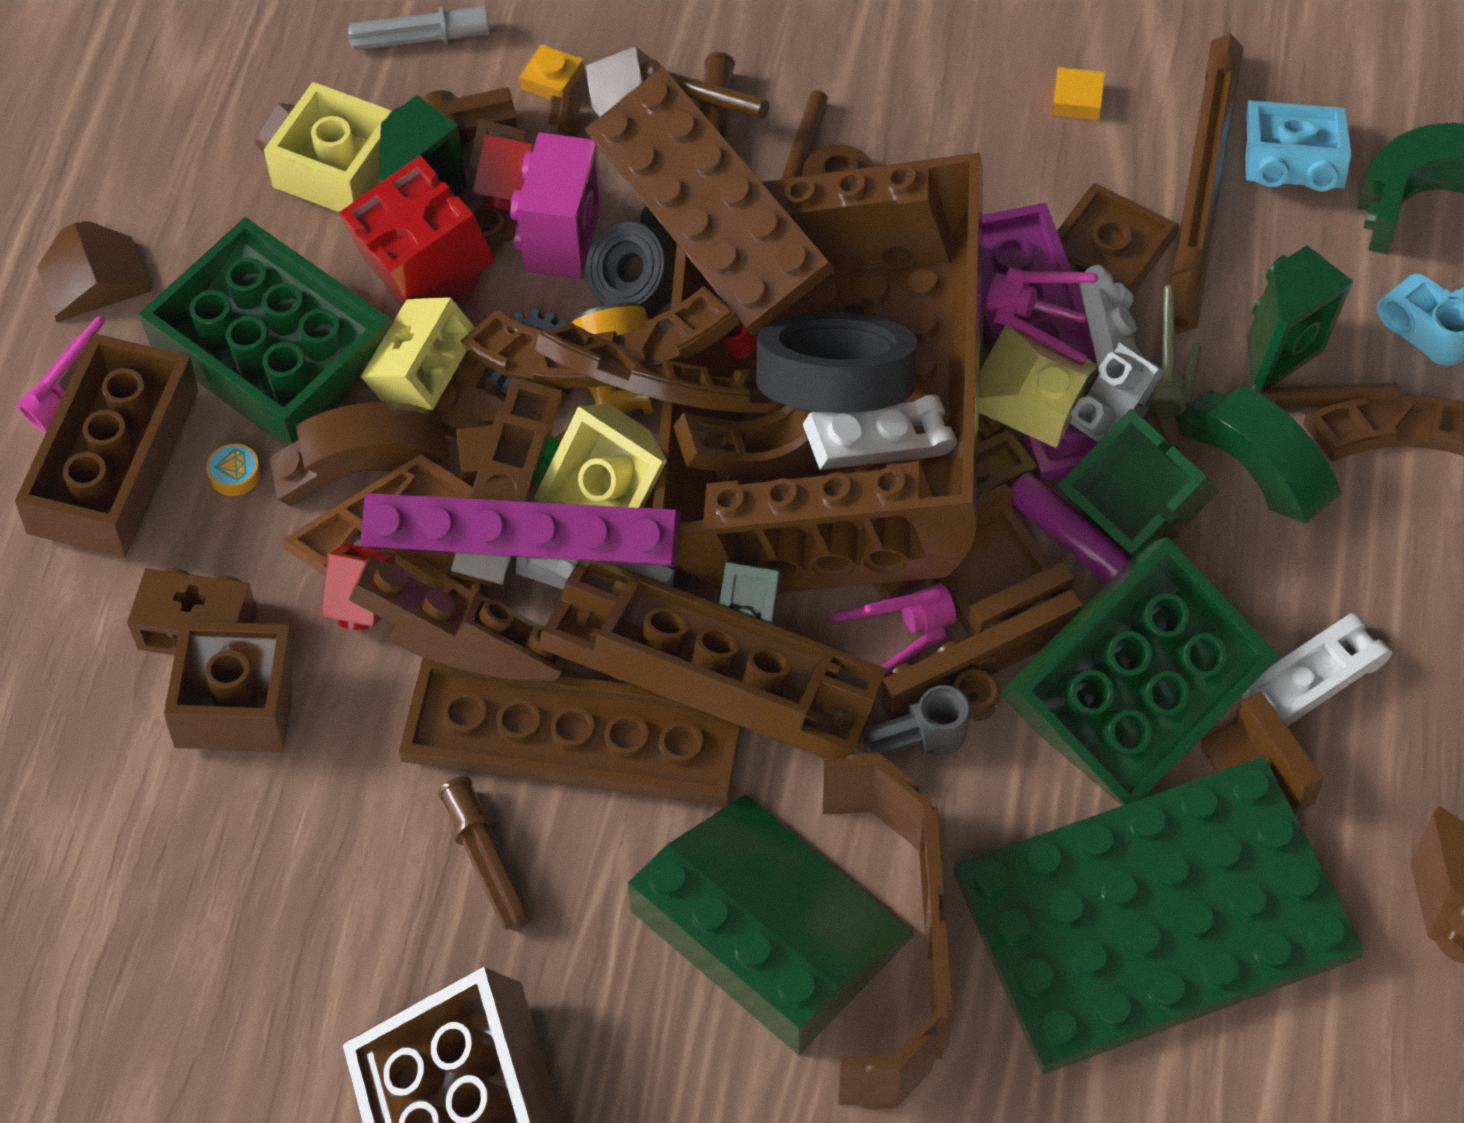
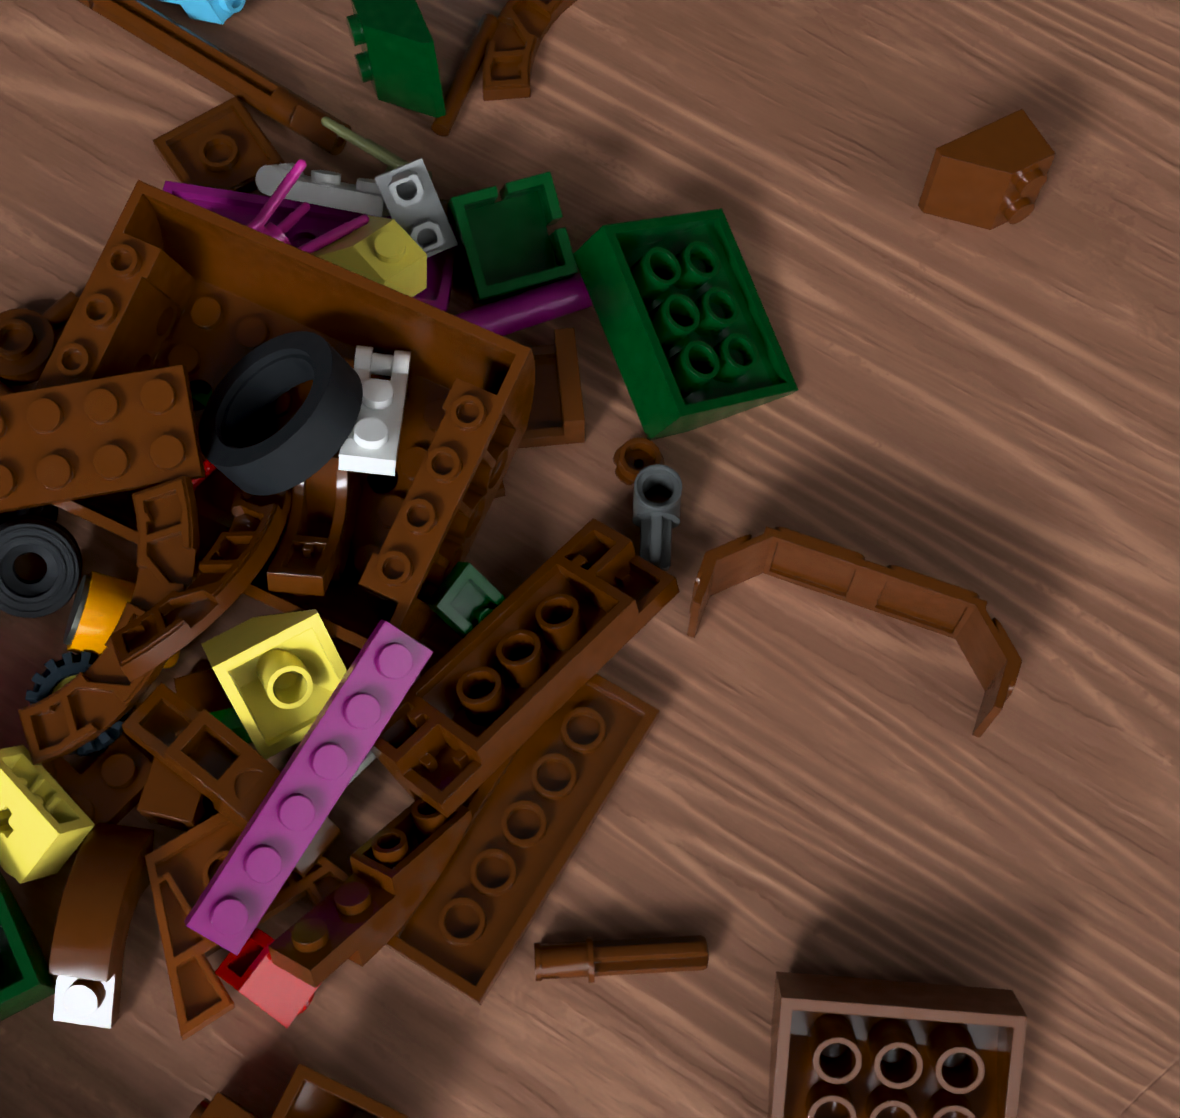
camera: 70 degrees left, 10 degrees up
(233, 469) = (46, 1064): tile -> none
(766, 920) = (791, 724): dark green slope -> none
(922, 611) = (537, 469): dark pink plant -> none
(991, 651) = (600, 417): reddish brown plate -> none
(1078, 93) = (43, 111): light orange tile -> none
(1155, 914) = (903, 413): dark green plate -> none
(1263, 733) = (801, 269): reddish brown panel -> none
(1268, 445) = (505, 126): dark green arch -> none
(1320, 668) = (735, 191): white plate -> none

